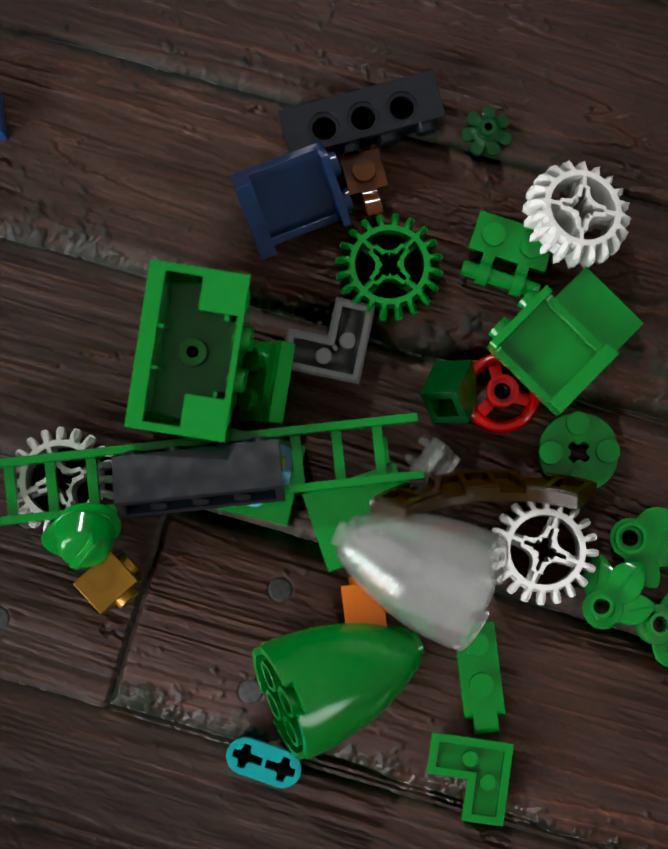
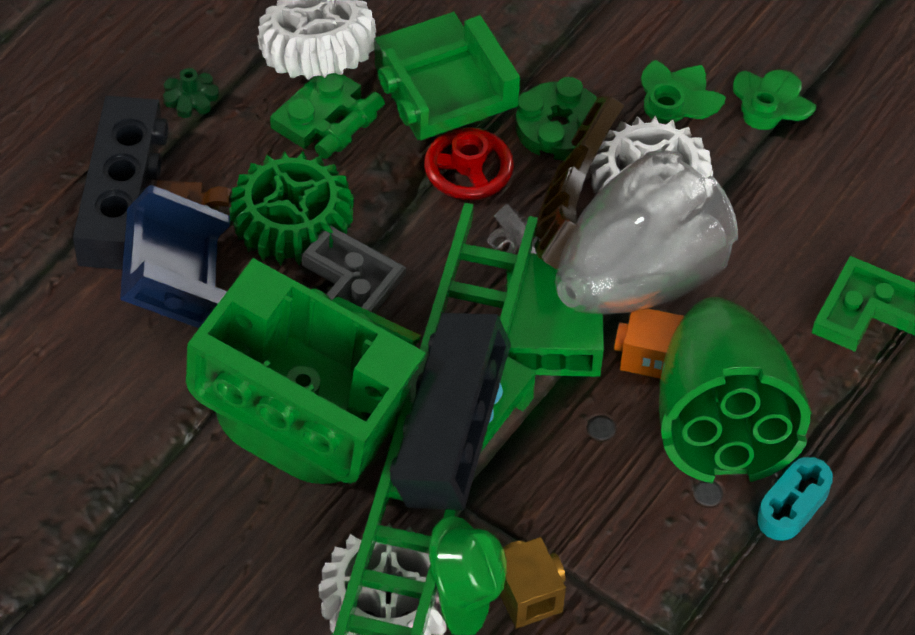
camera: 75 degrees left, 30 degrees down
(450, 391) = (446, 188): dark green brick -> none
(481, 681) = (773, 275): green hinge -> none
(620, 589) = (721, 123): green plate -> none

